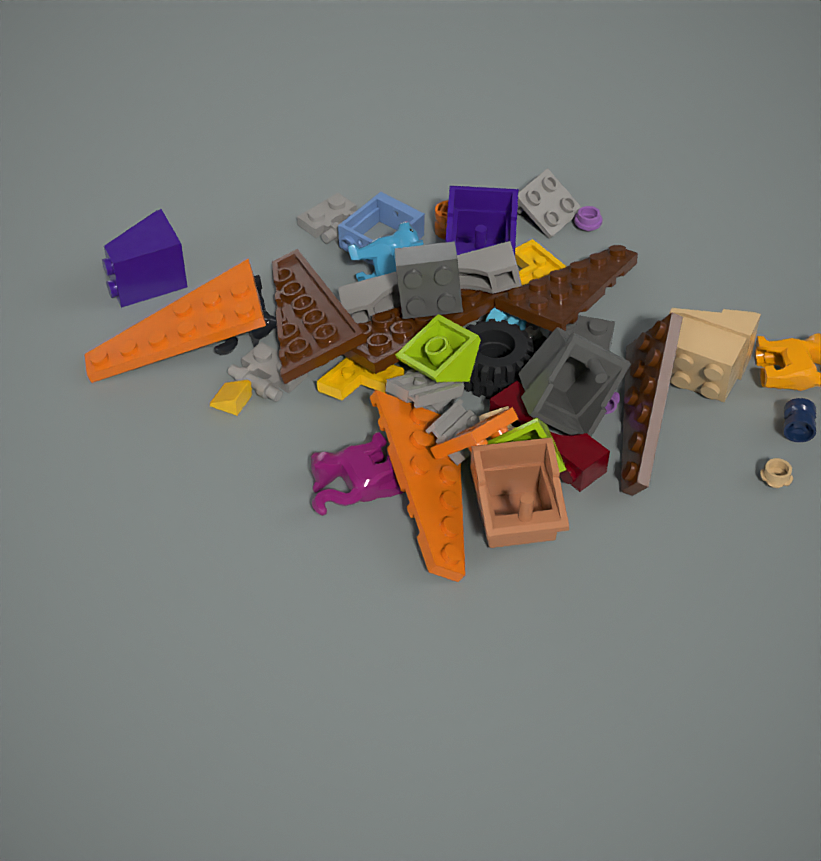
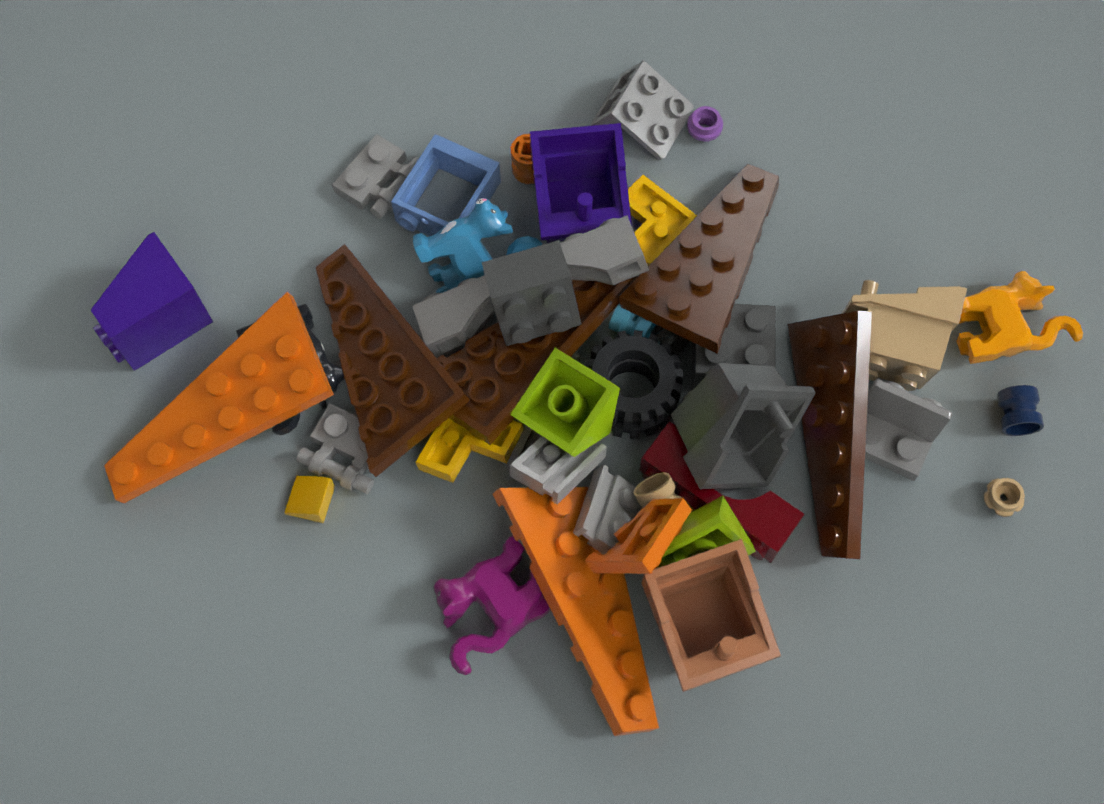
camera: 10 degrees left, 20 degrees up
(697, 411) = (901, 427): none -> light grey bracket

